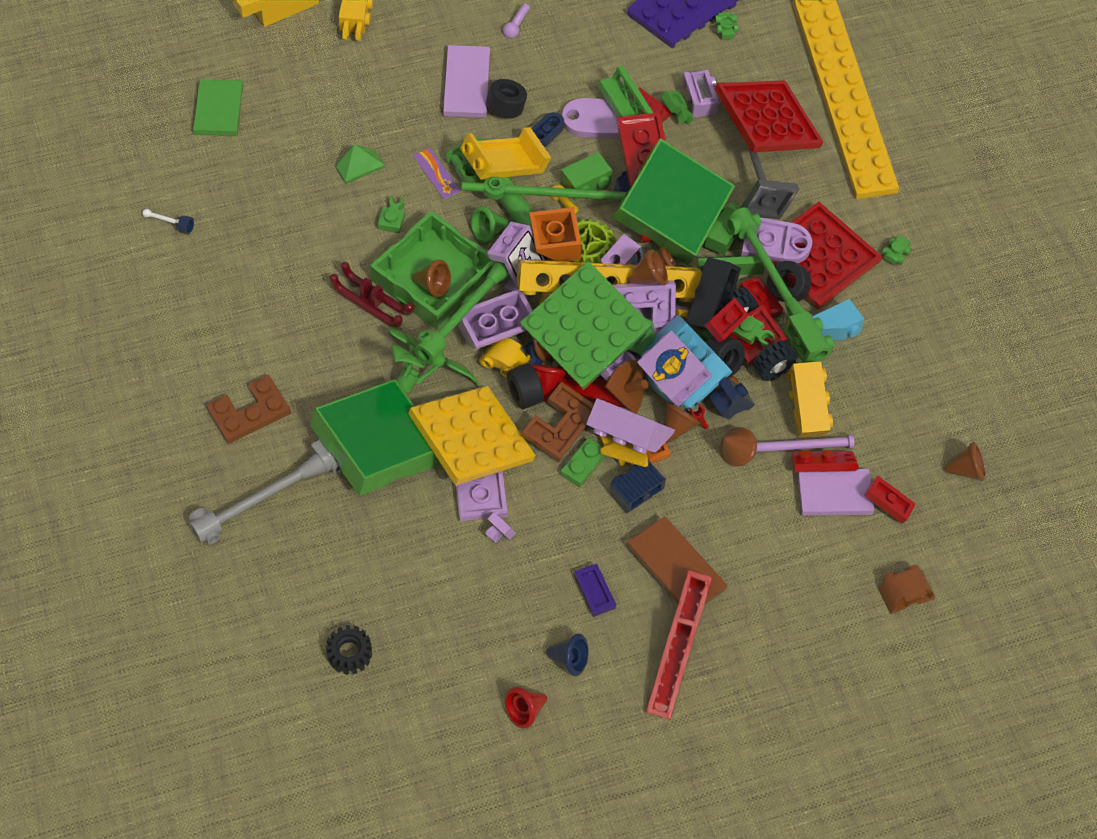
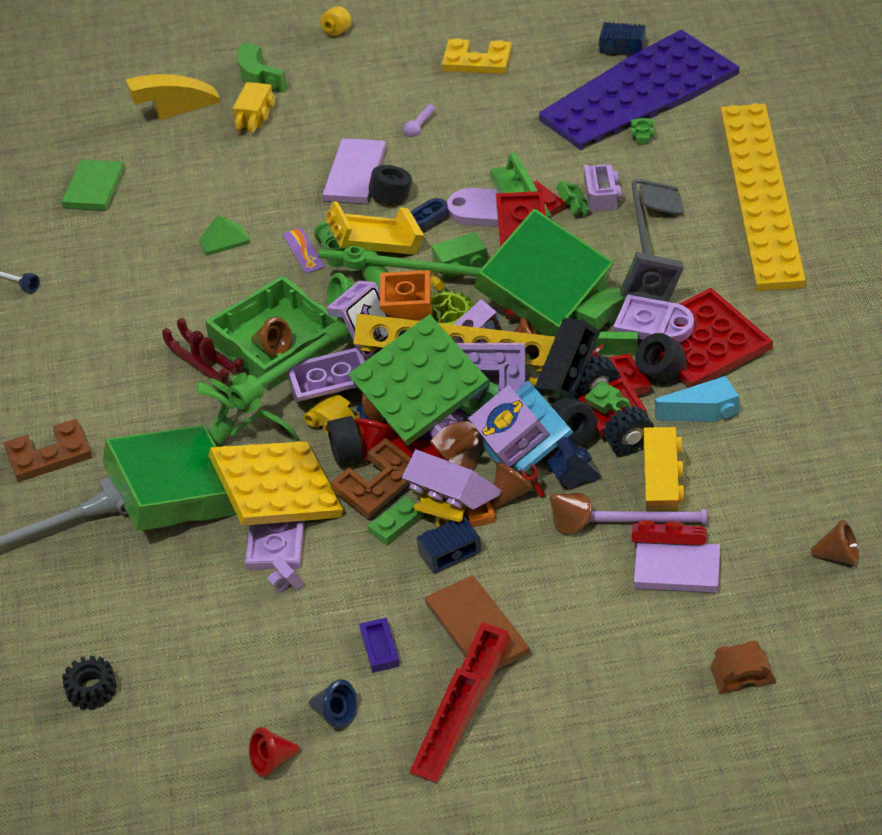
camera: 15 degrees right, 15 degrees down
(393, 217) = (245, 285): bright green plate -> none
(650, 270) = (498, 328): dark orange hat -> none
(726, 320) = (575, 382): red plate -> none
(768, 116) = (668, 206): red plate -> none
(800, 327) = (661, 395): bright green bar -> none
(890, 499) = (737, 574): red plate -> none
(897, 248) = (792, 337): bright green piece -> none

